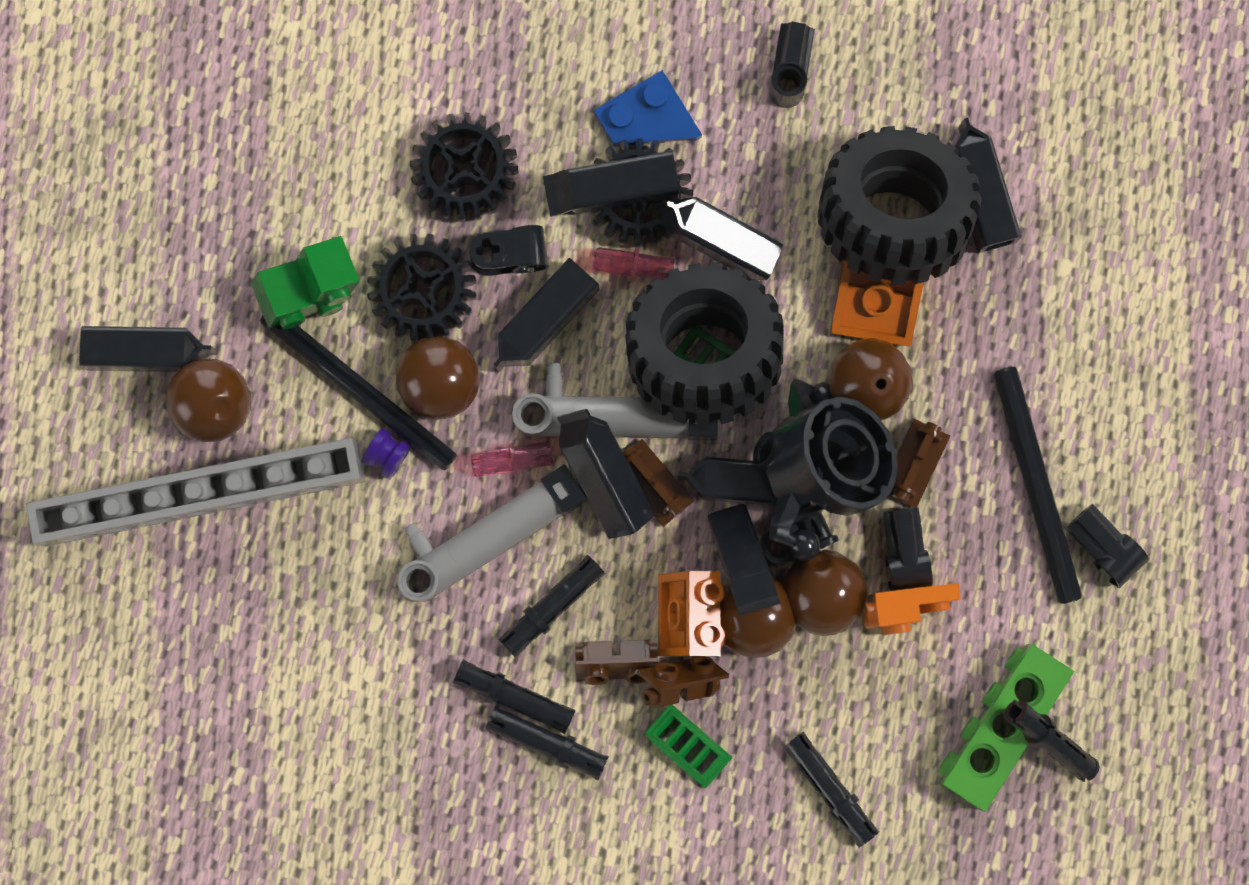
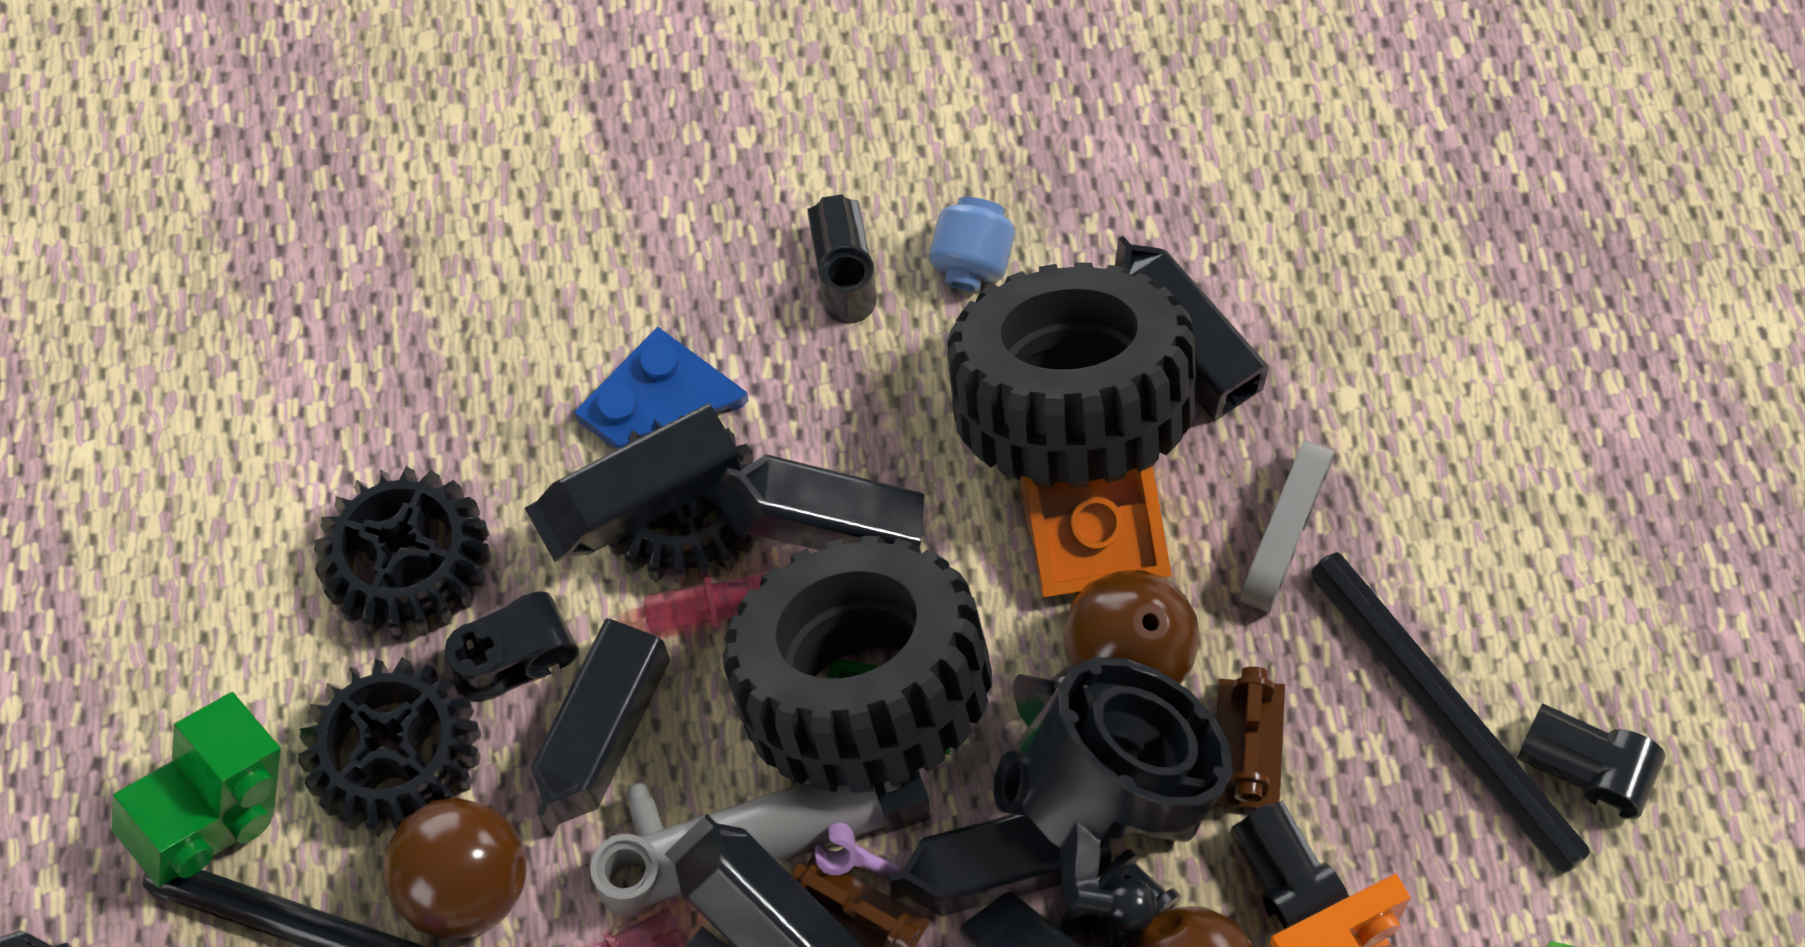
camera: 20 degrees left, 20 degrees down
(658, 449) = (851, 855): none -> lavender hand
(874, 84) = (972, 243): none -> medium blue head
(992, 339) = (1286, 525): none -> light grey beam

